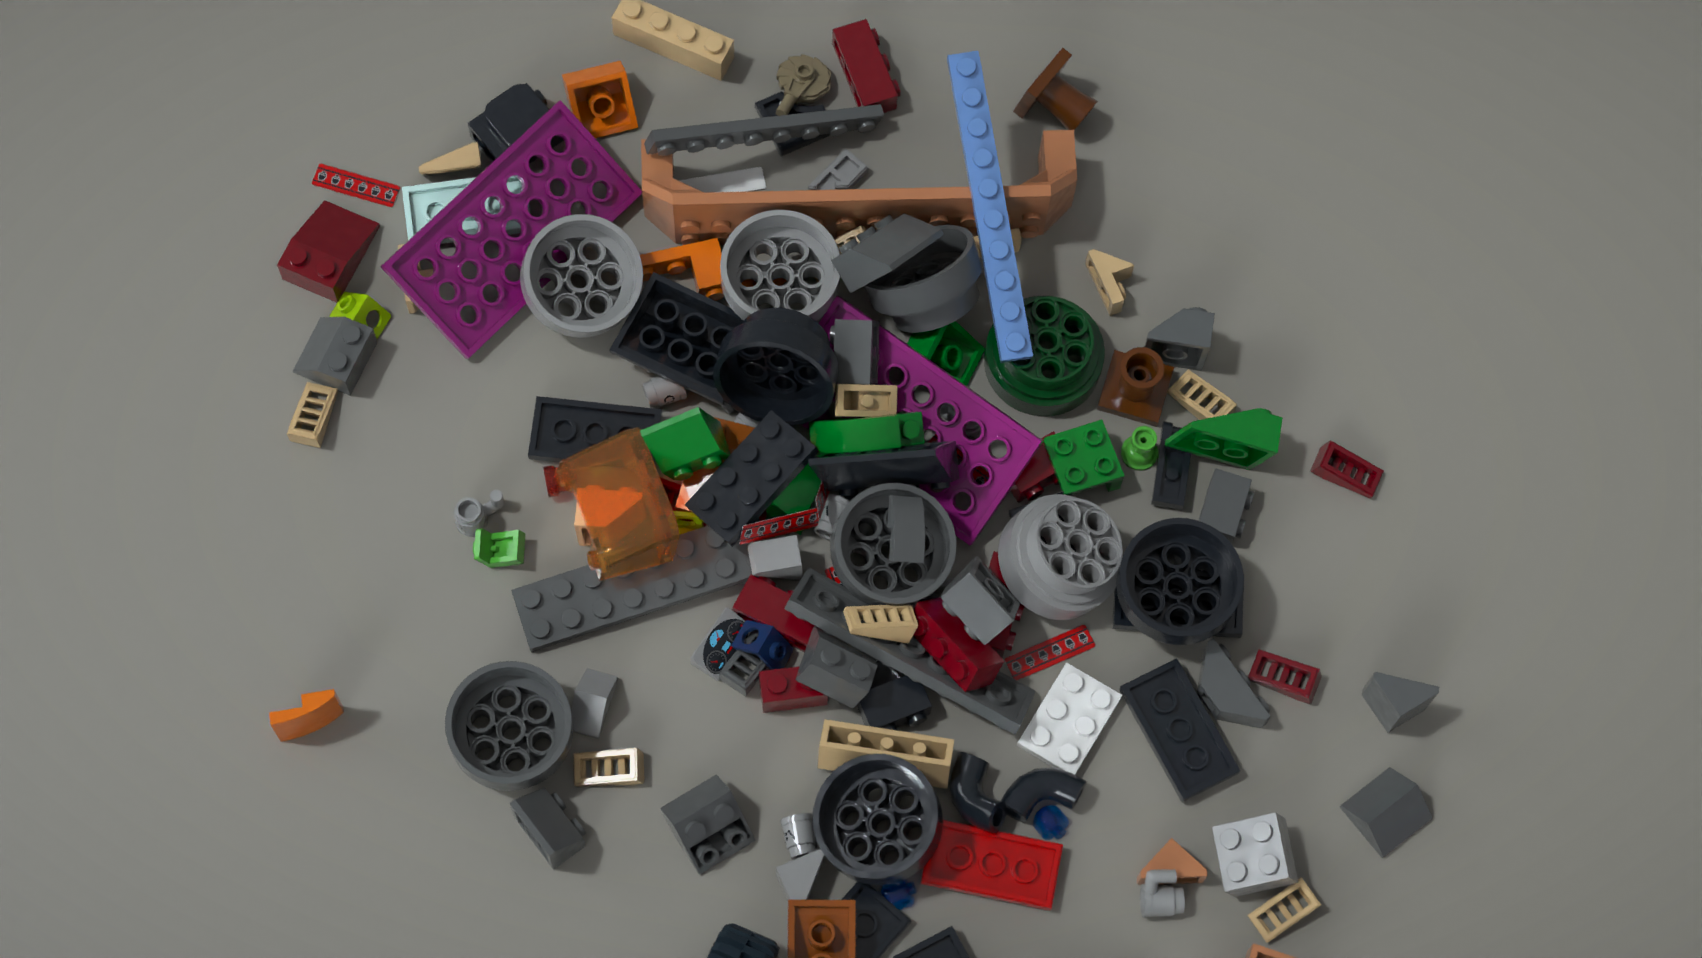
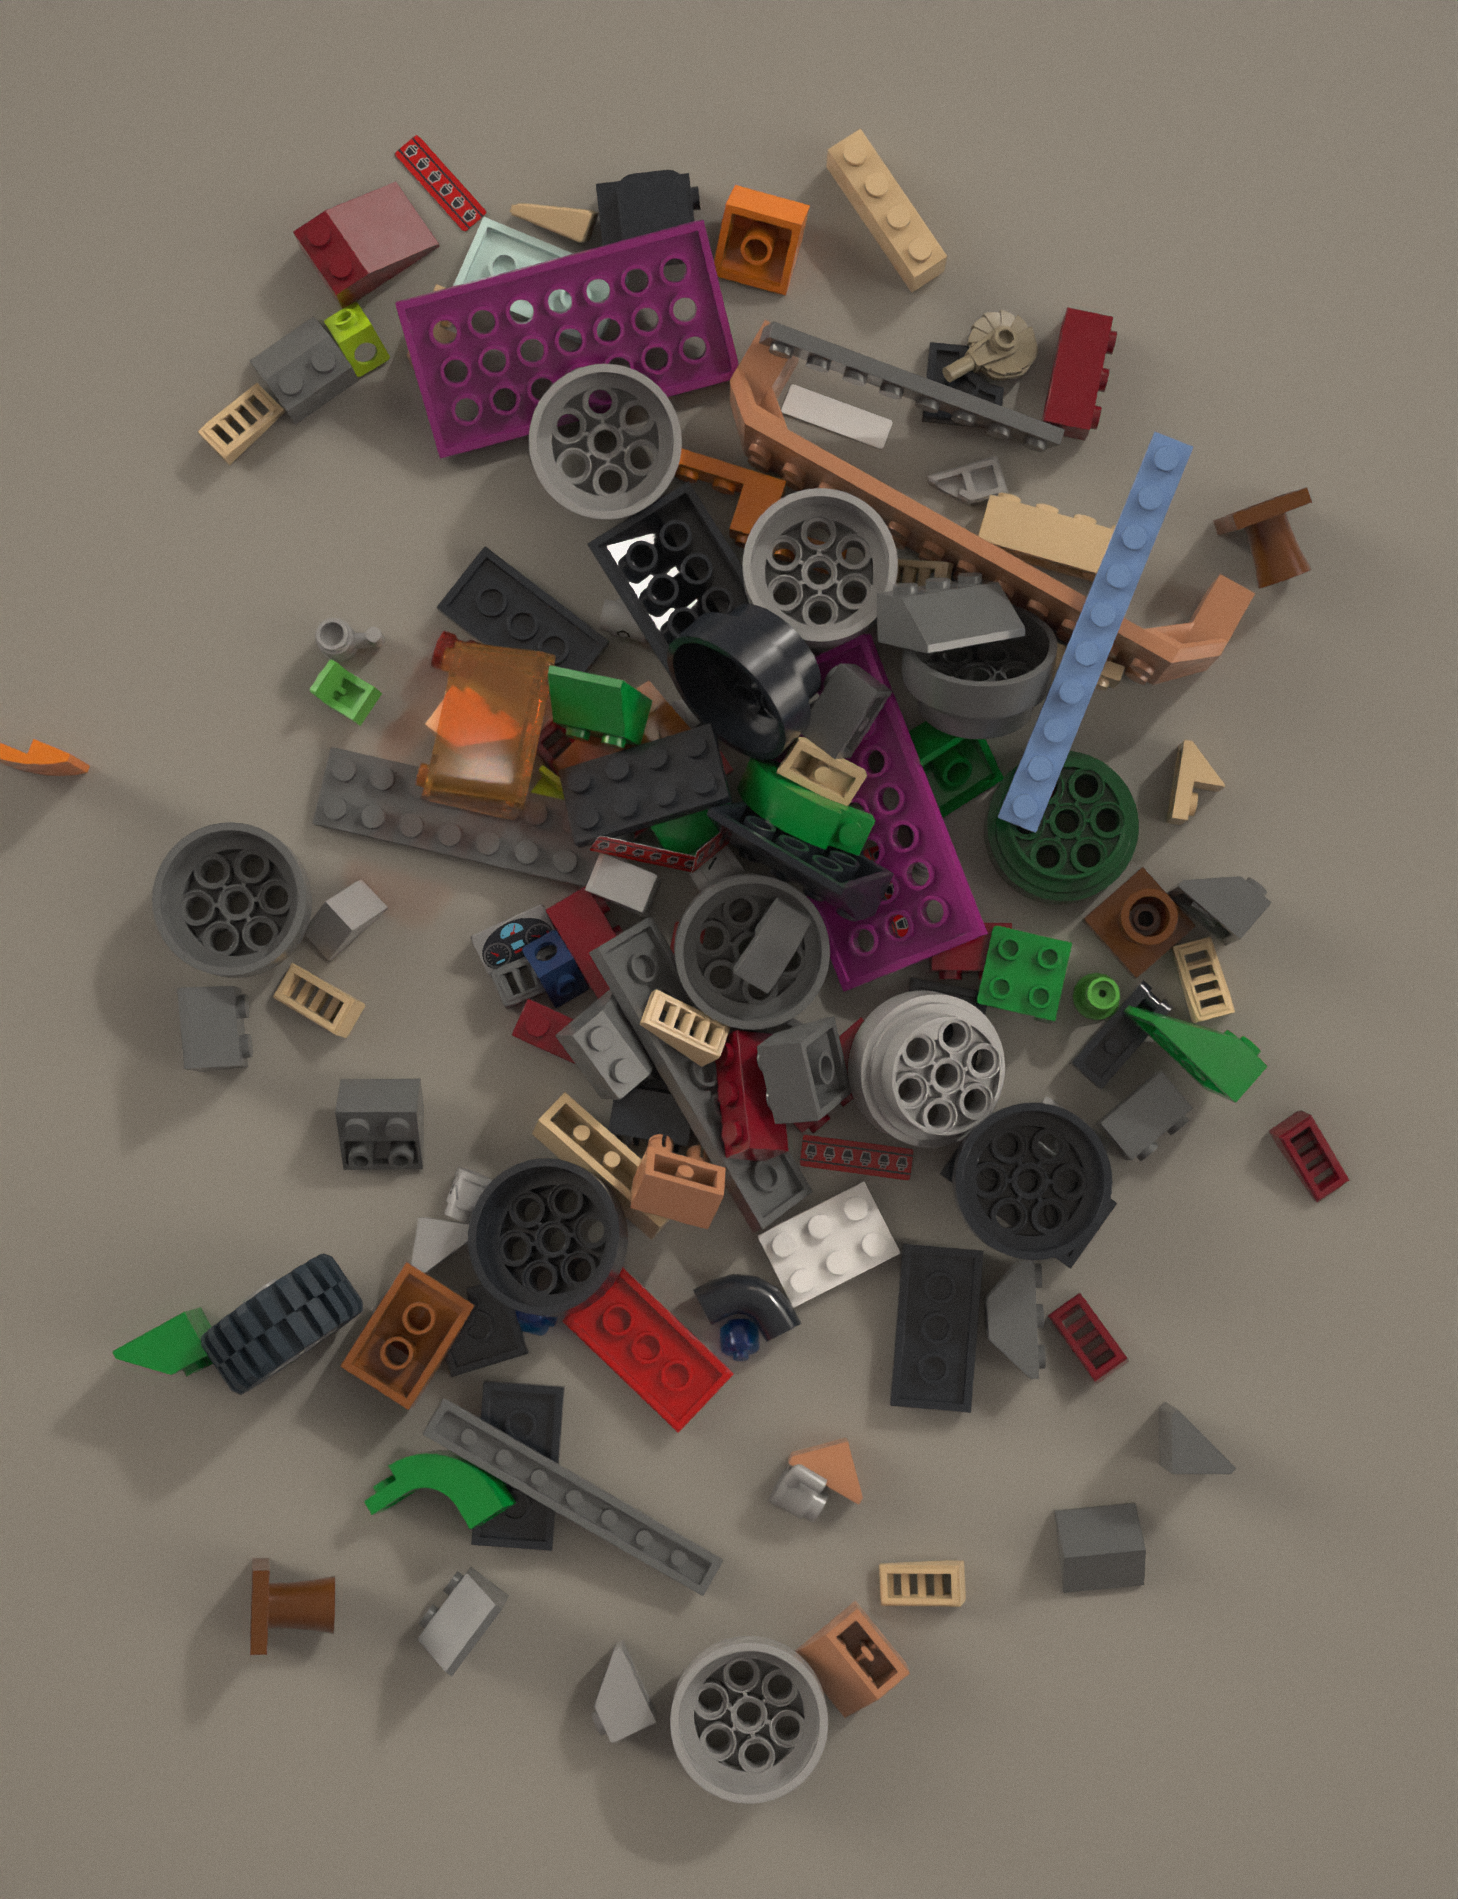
camera: 40 degrees right, 15 degrees up
(930, 169) = (1045, 537): none -> tan brick
(945, 727) = (678, 1185): none -> nougat brick
(969, 796) = (668, 1265): black cylinder -> none
(1255, 854) = (924, 1514): light grey brick -> none

